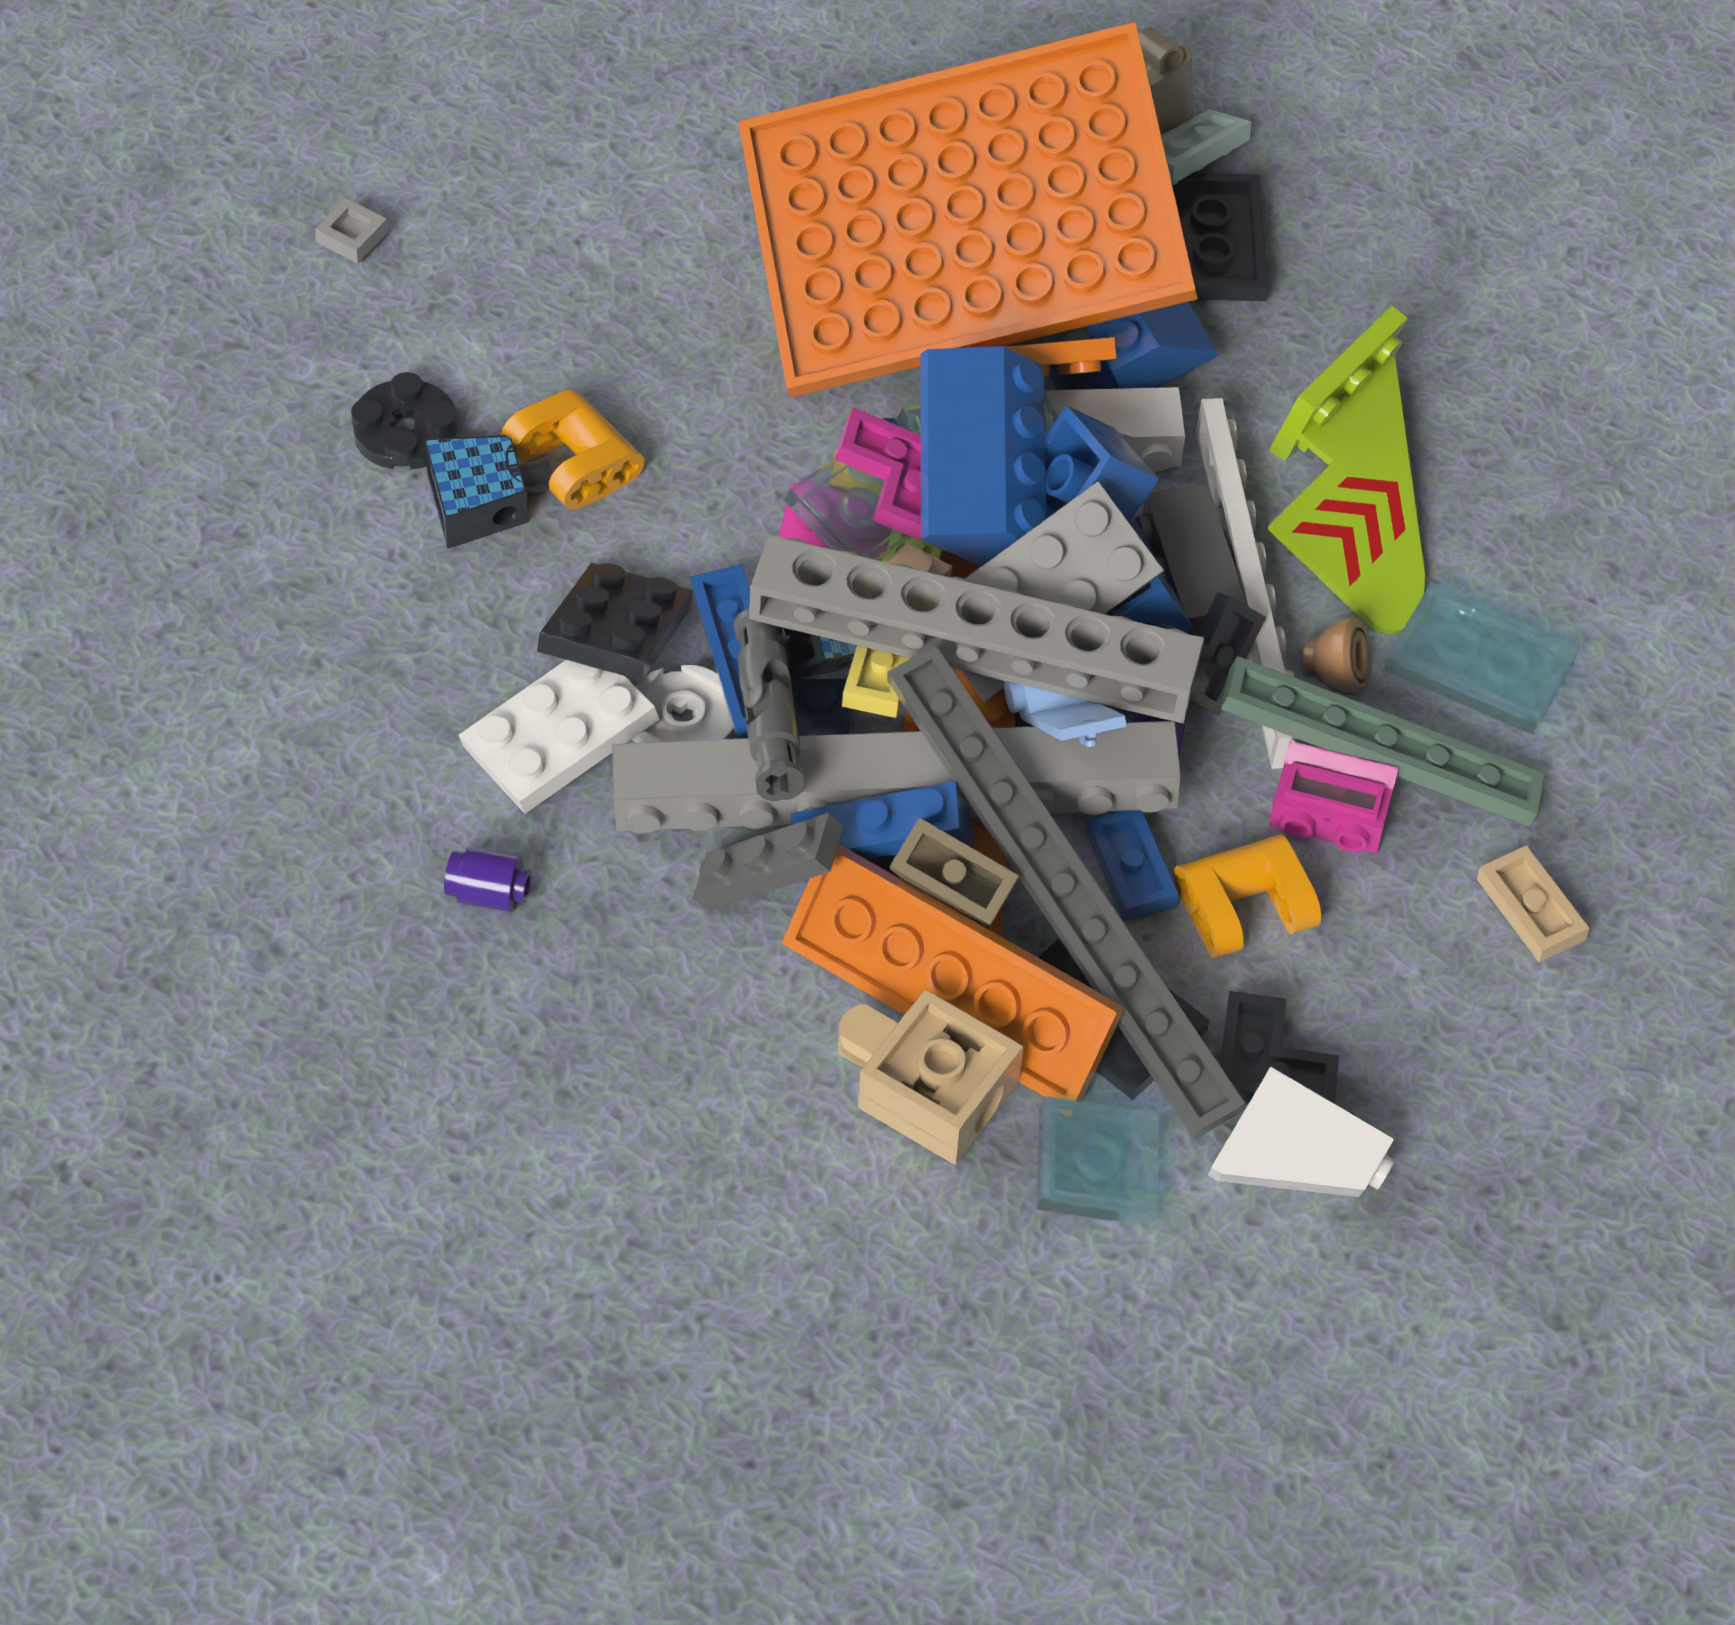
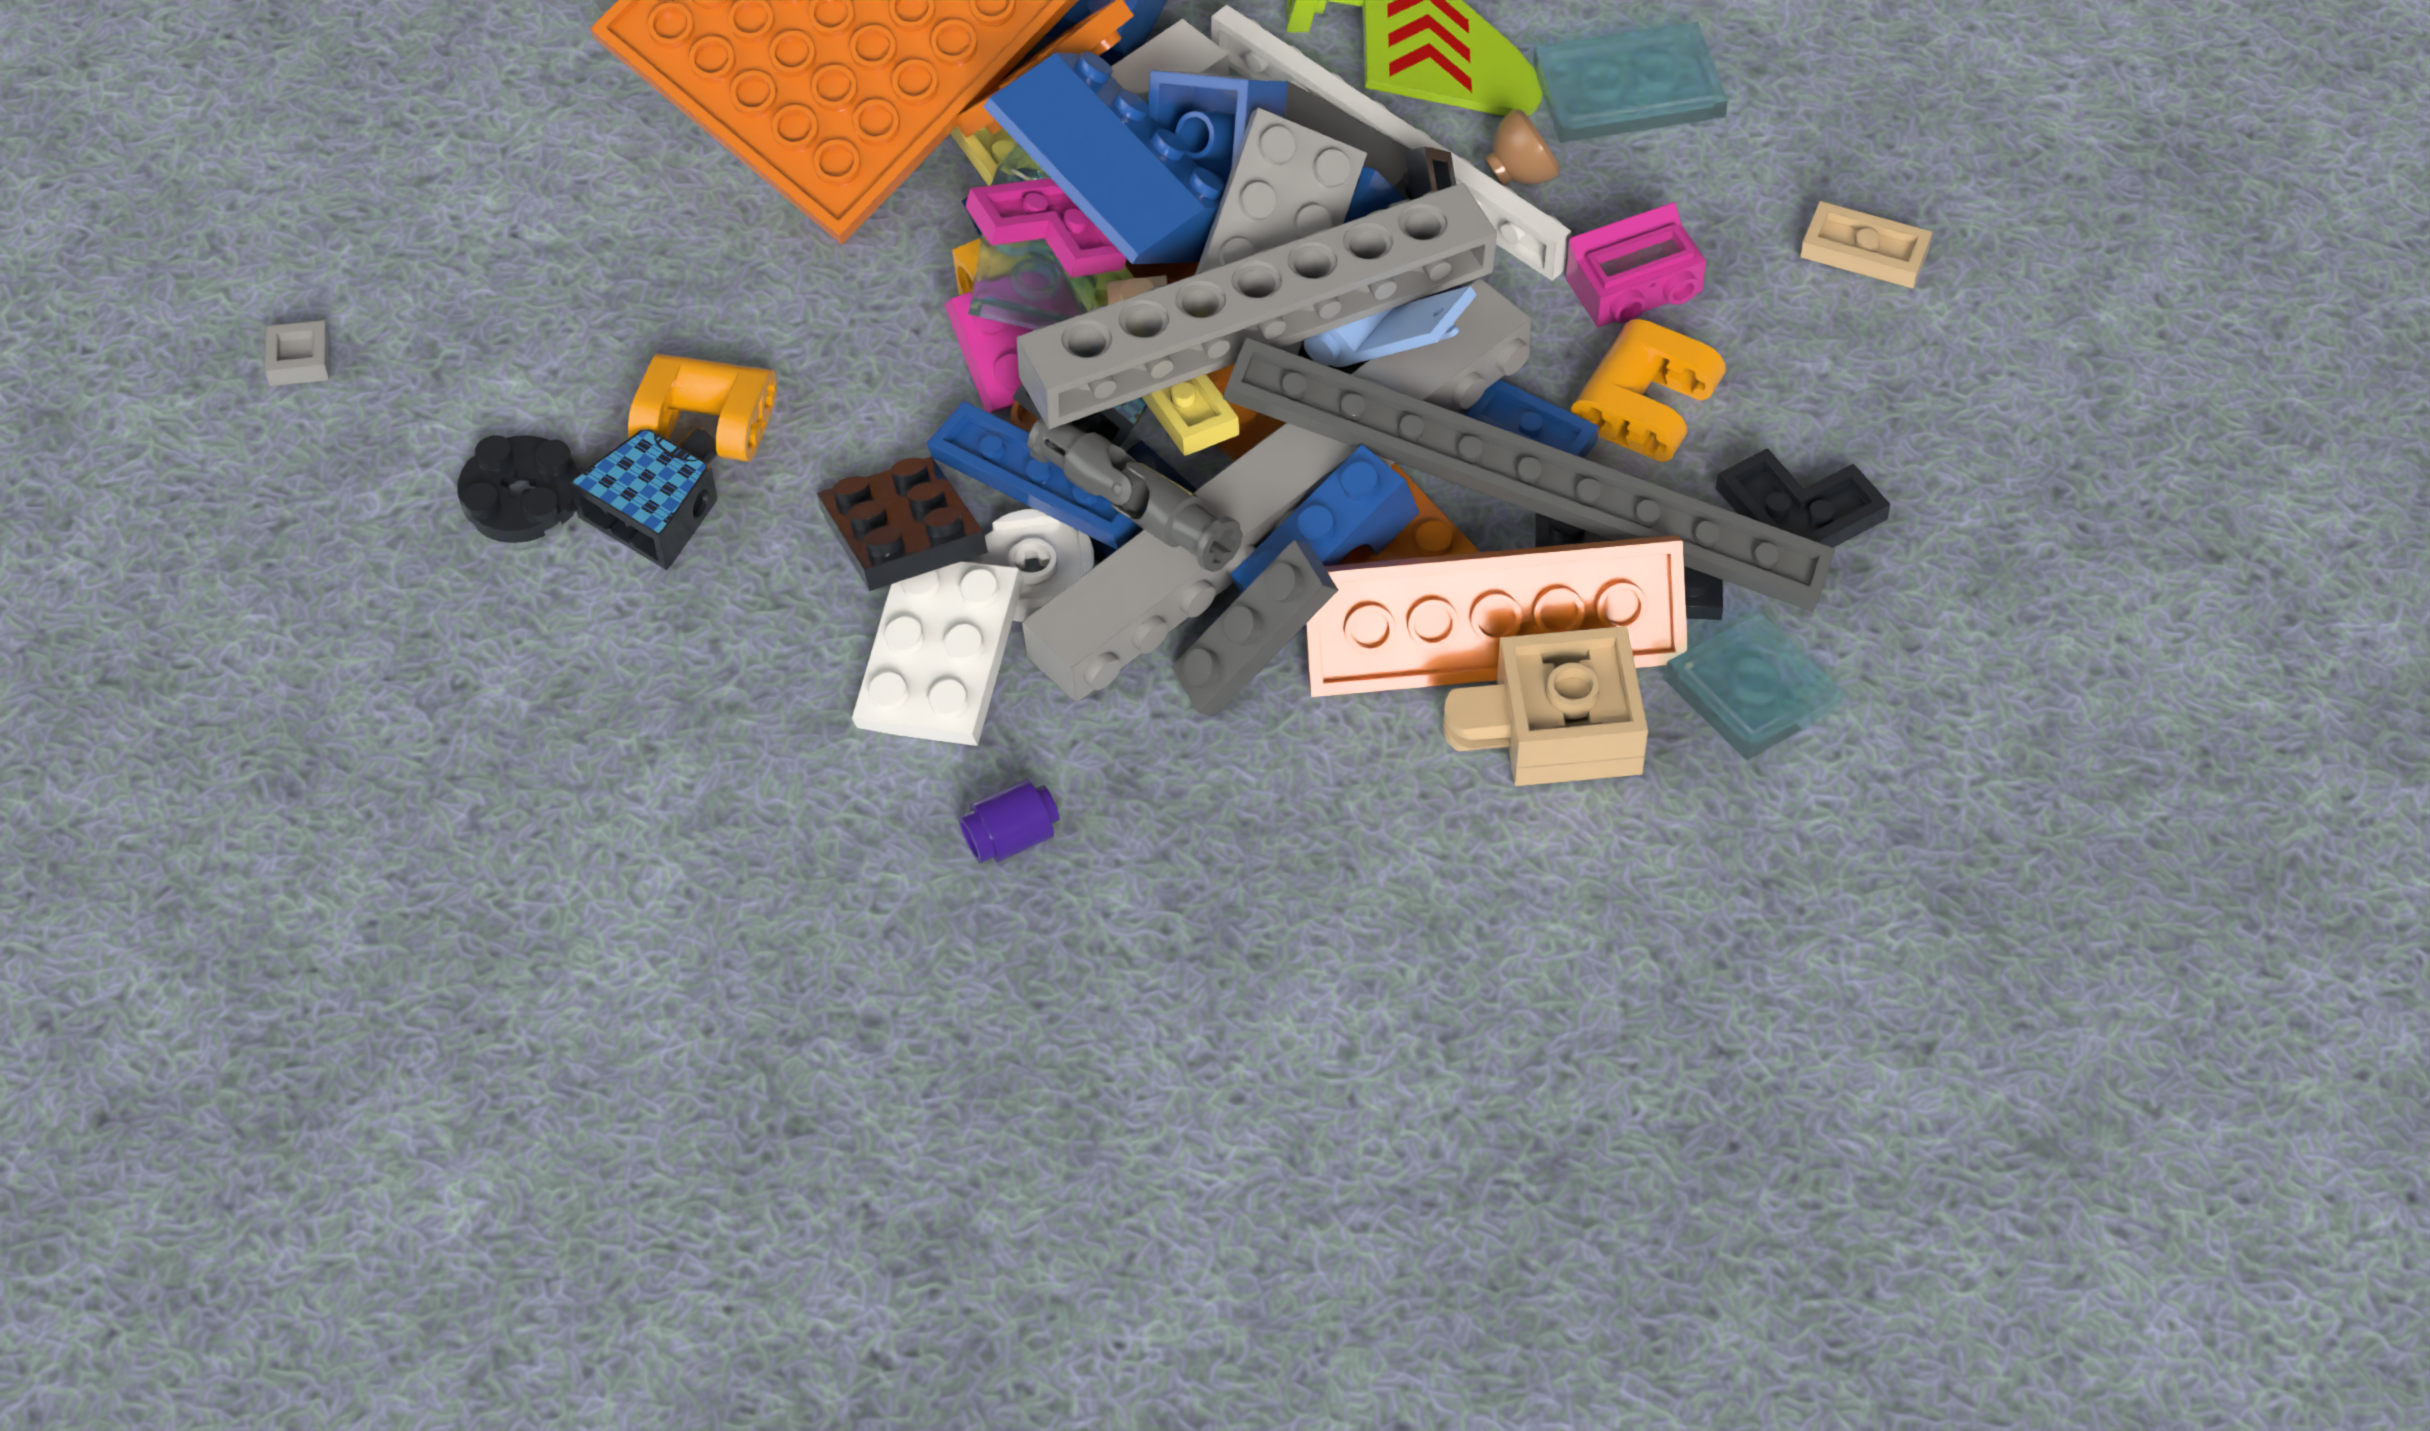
camera: 35 degrees left, 0 degrees up
(953, 873) = (1437, 521): dark tan slope -> none
(1302, 1143) = (1900, 550): white slope -> none
(1377, 736) = (1624, 190): sand green plate -> none

